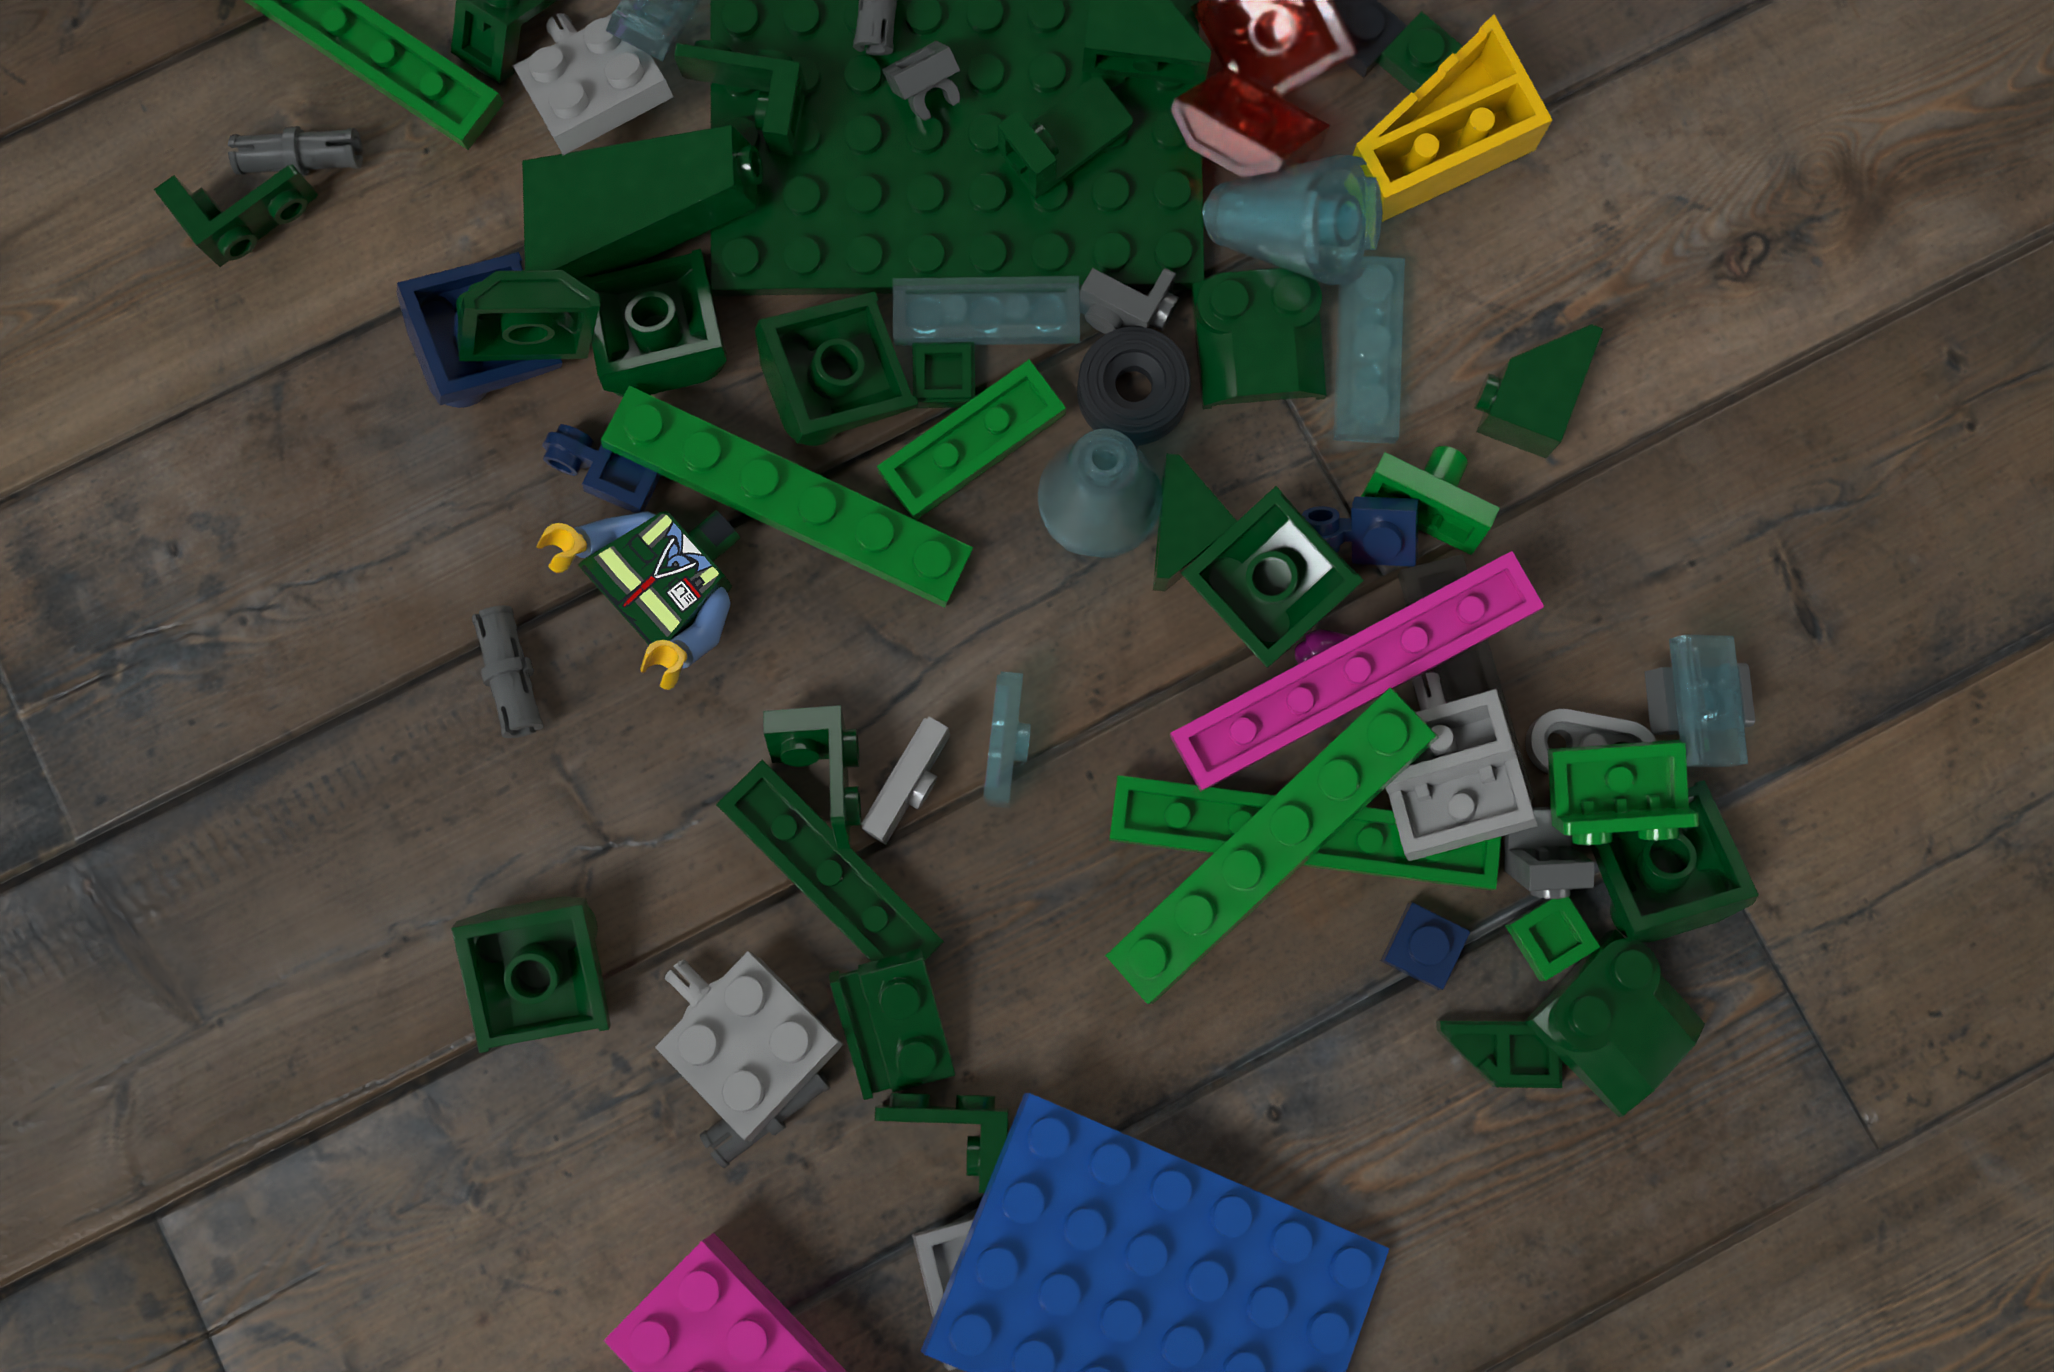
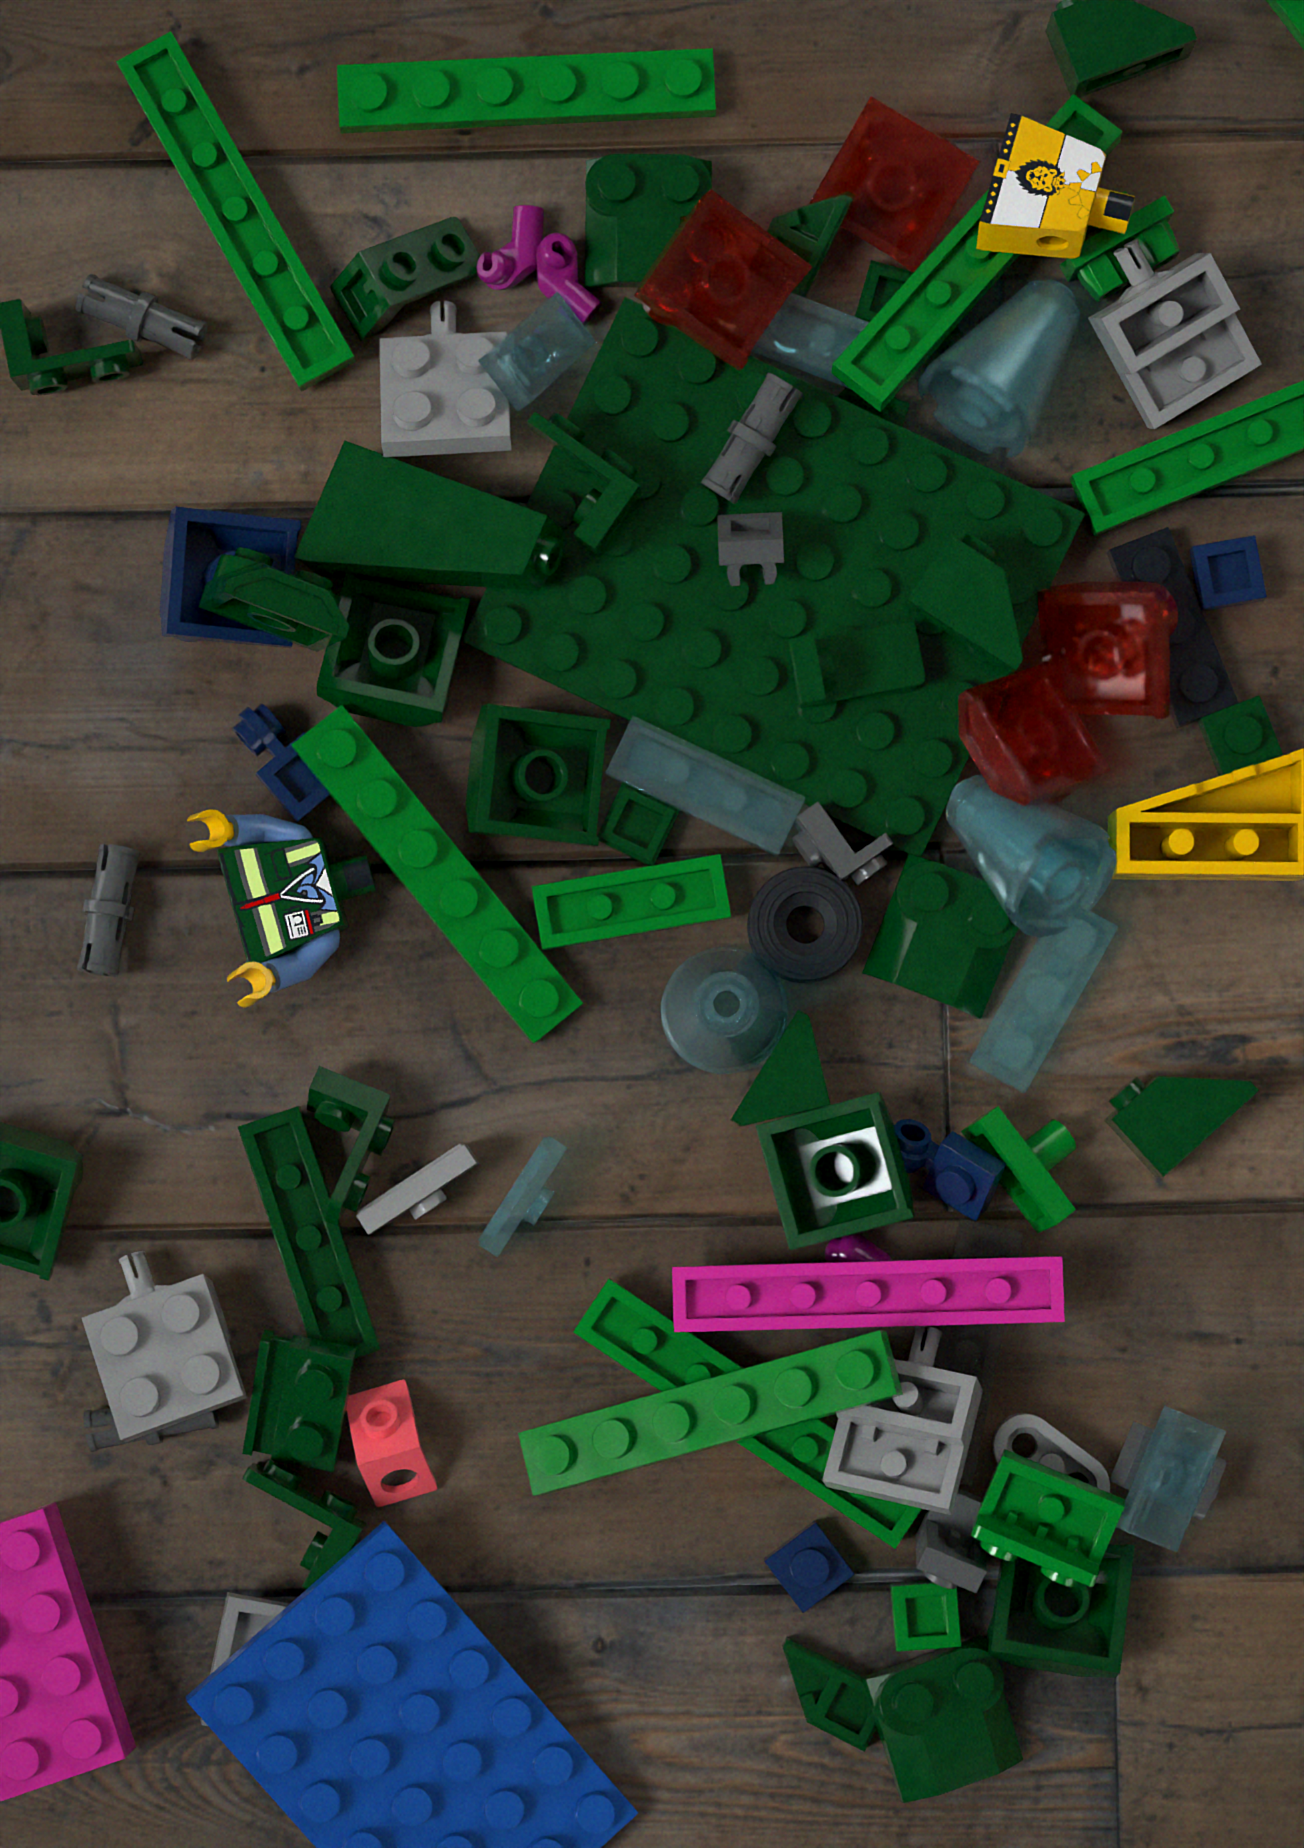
camera: 30 degrees right, 5 degrees up
(991, 1021) = (388, 1441): none -> coral bracket

